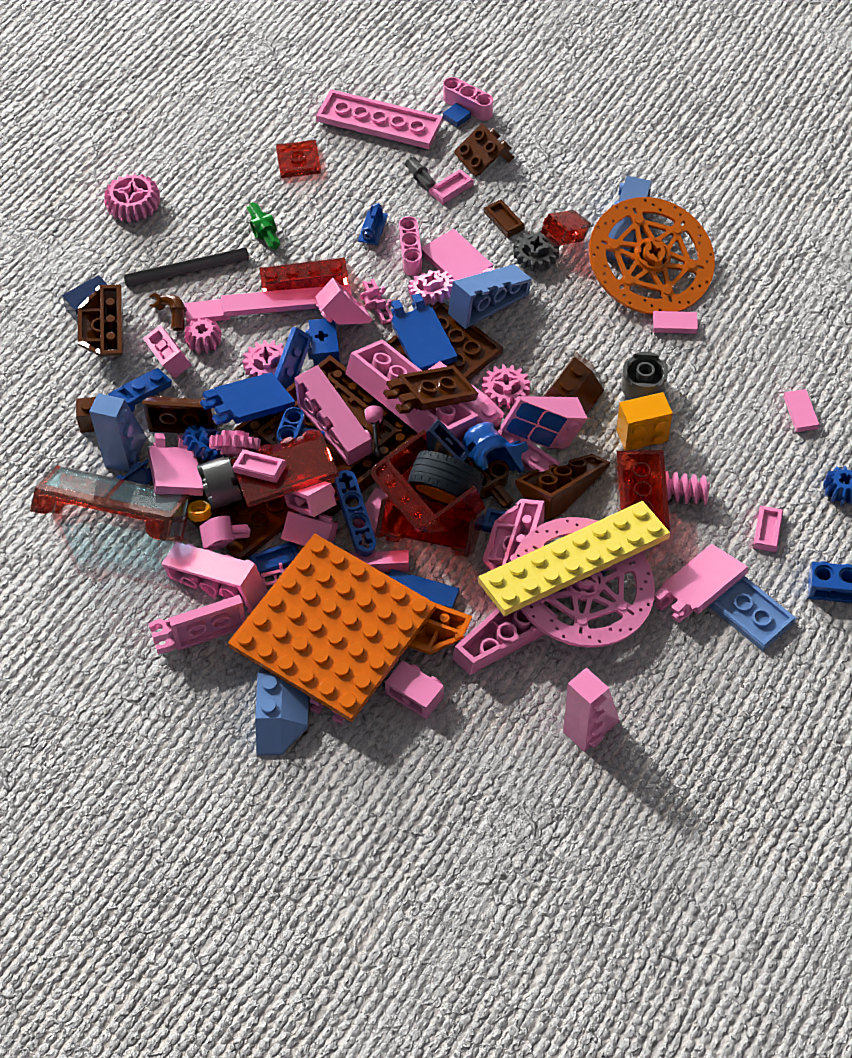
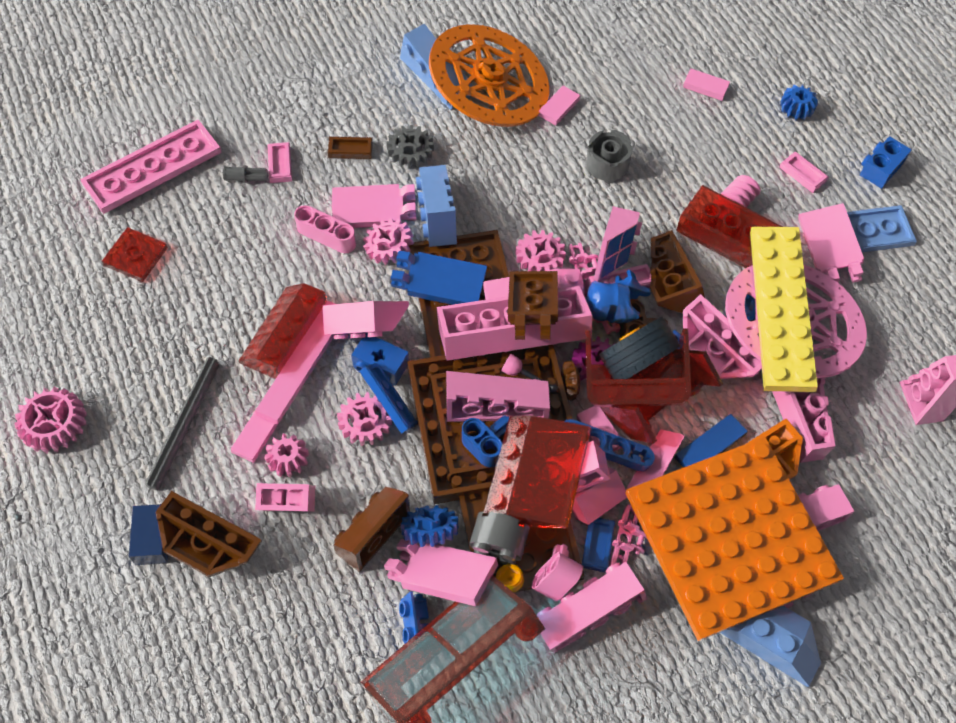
camera: 60 degrees left, 5 degrees up
(83, 416) = (304, 616): reddish brown brick -> none
(116, 432) = (372, 600): medium blue wedge -> none
(142, 387) = (308, 555): blue plate -> none
(176, 307) = (232, 457): reddish brown piece -> none
(198, 625) = (648, 661): bright pink tile -> none
(233, 442) = (467, 498): bright pink gear -> none
(247, 399) = (420, 456): blue tile -> none
(259, 466) = (529, 489): bright pink tile -> none
(263, 226) = (194, 327): green axle -> none
(373, 225) = (273, 243): blue hinge -> none
(376, 302) = (354, 291): bright pink piece -> none
(443, 441) = (604, 329): dark blue slope -> none
(456, 115) = (201, 110): blue tile -> none
(469, 97) = (194, 90): bright pink beam -> none
(482, 149) = (263, 116): reddish brown bracket -> none
(565, 227) = (408, 110): clear red brick -> none
(578, 380) = (579, 213): reddish brown wedge -> none
(644, 421) = (658, 181): light orange brick -> none

